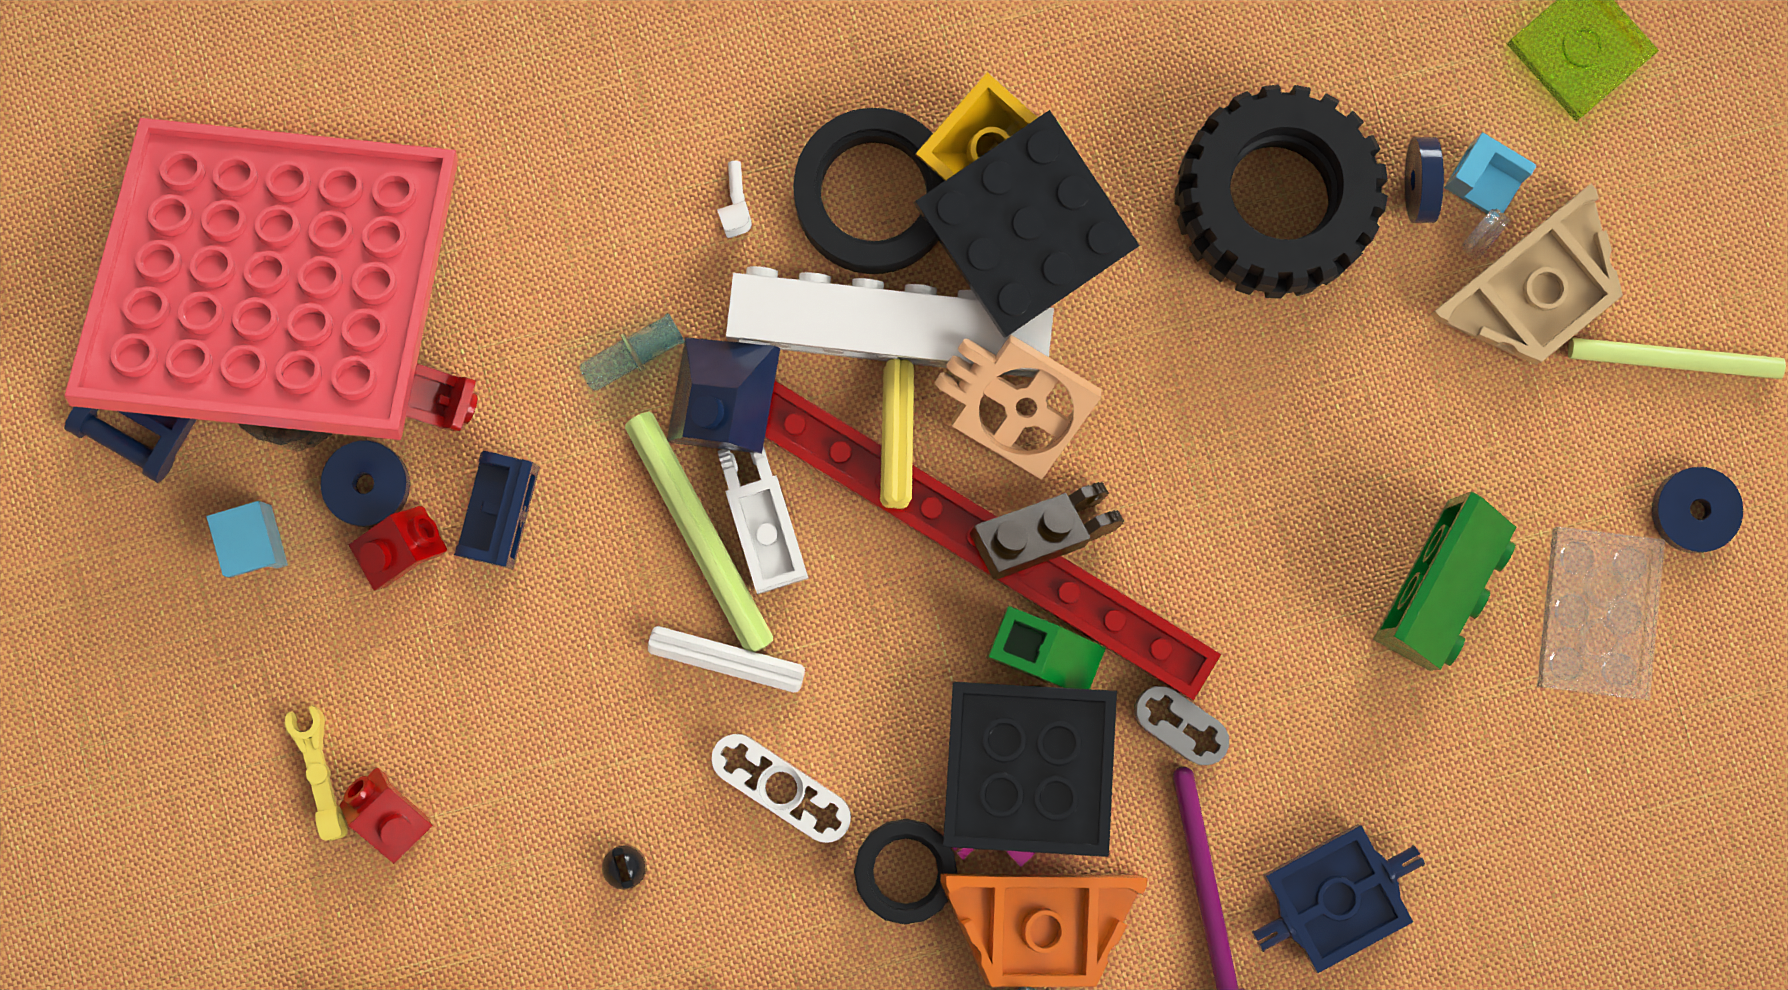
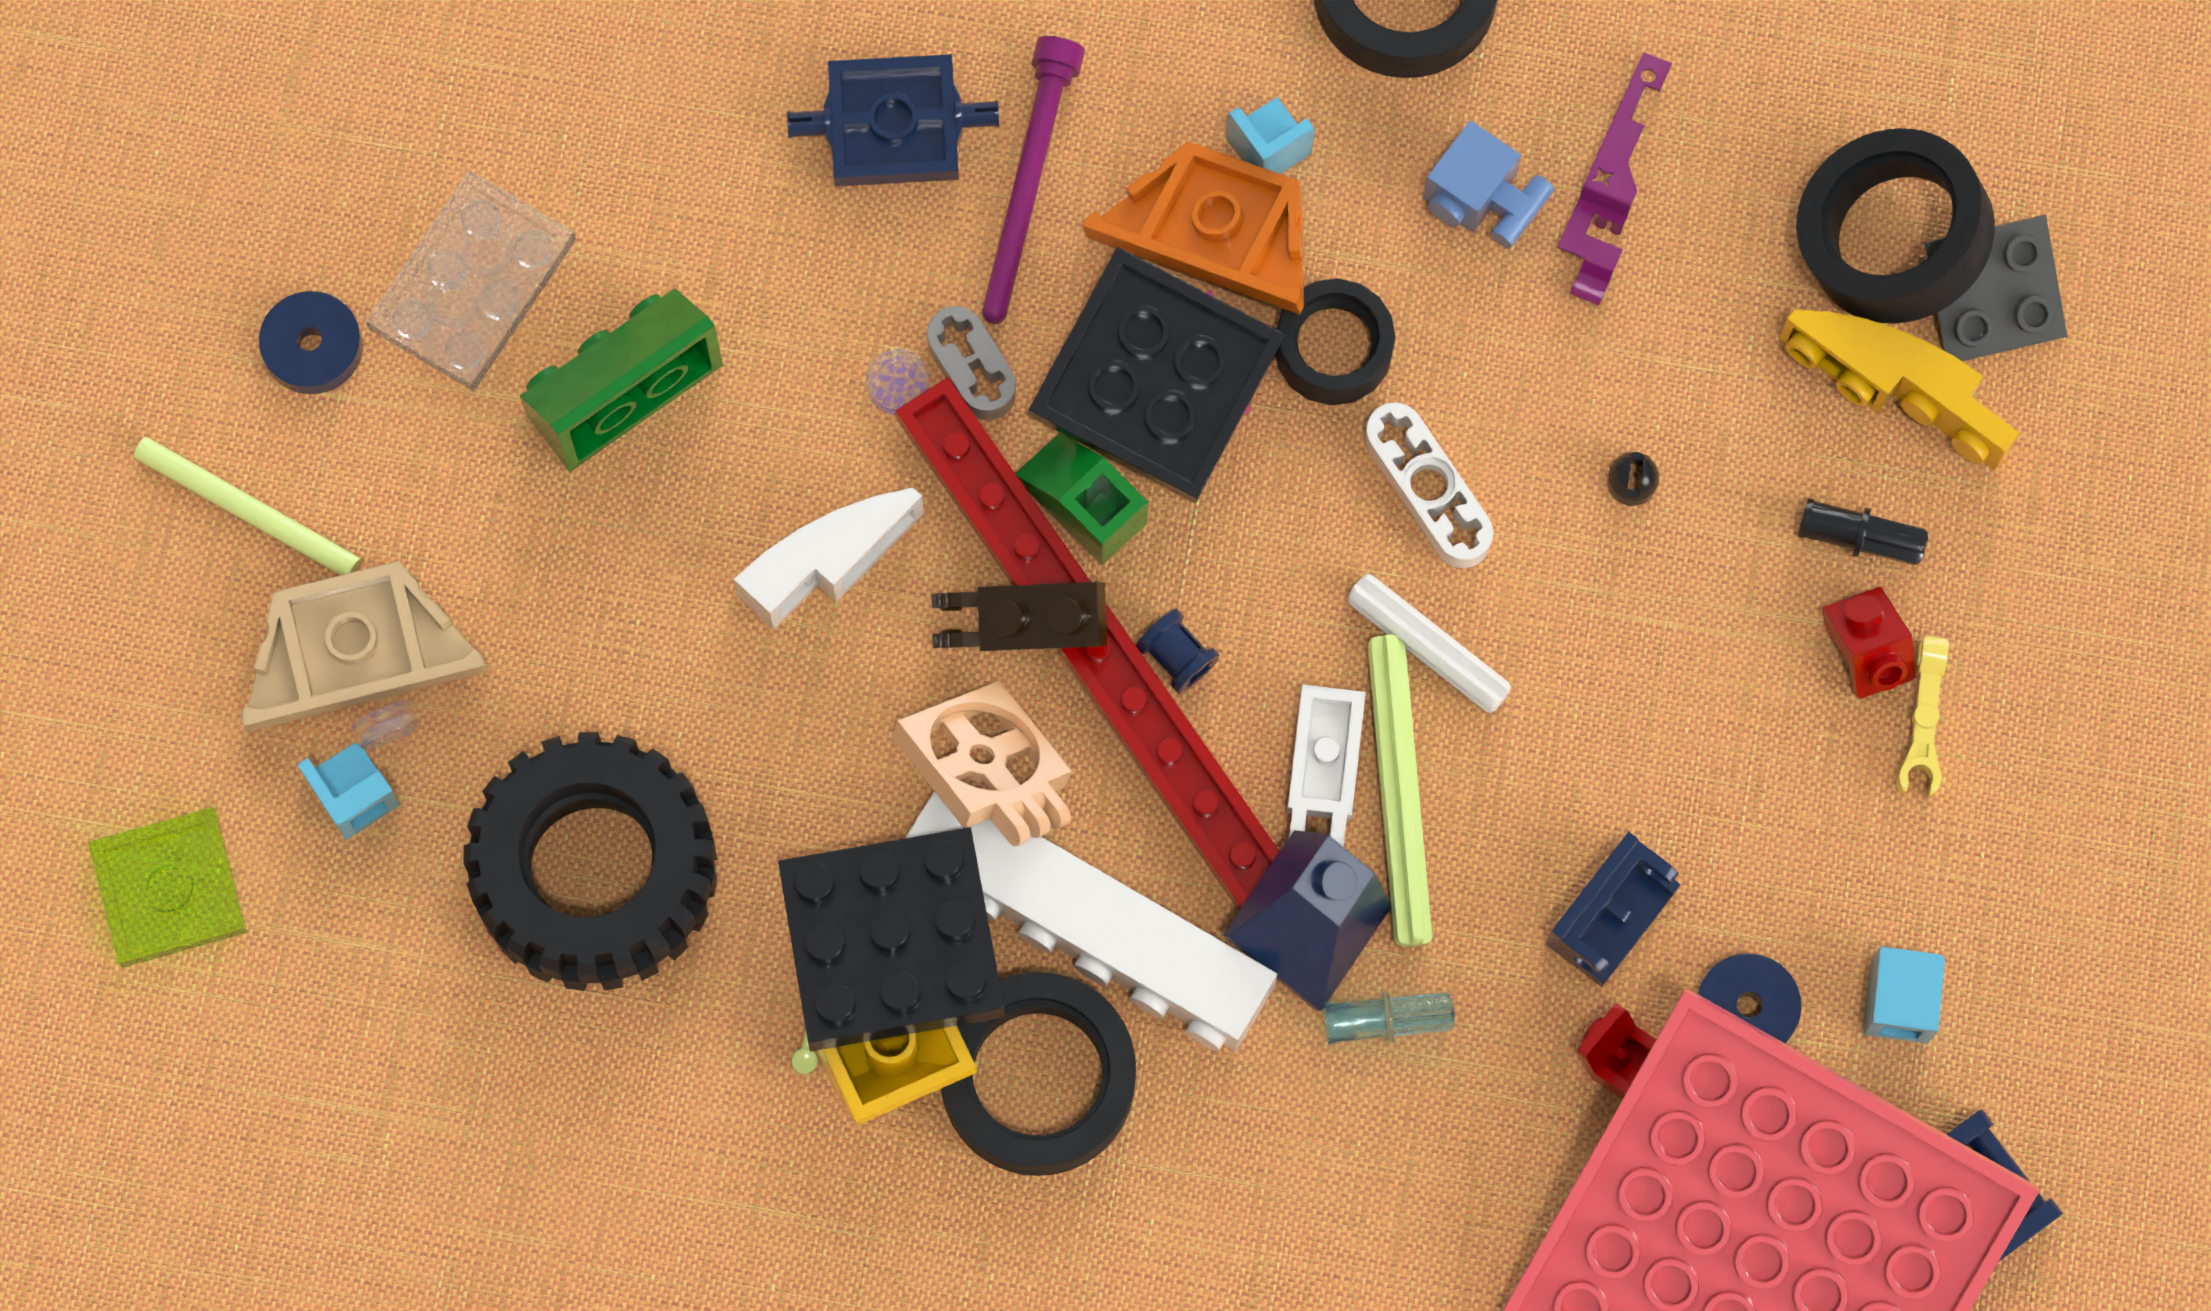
camera: 155 degrees left, 10 degrees down
(397, 546) = (1739, 918): red bracket -> none
(424, 901) = (1863, 532): none -> black axle
(735, 217) = (1204, 1117): white hand -> none
(897, 433) = (1136, 787): light yellow axle -> none
(915, 562) = (1177, 651): none -> dark blue bush
(1220, 515) = (826, 554): none -> white slope
(1232, 685) = (896, 379): none -> clear tile
(1424, 179) = (425, 807): dark blue piece -> none

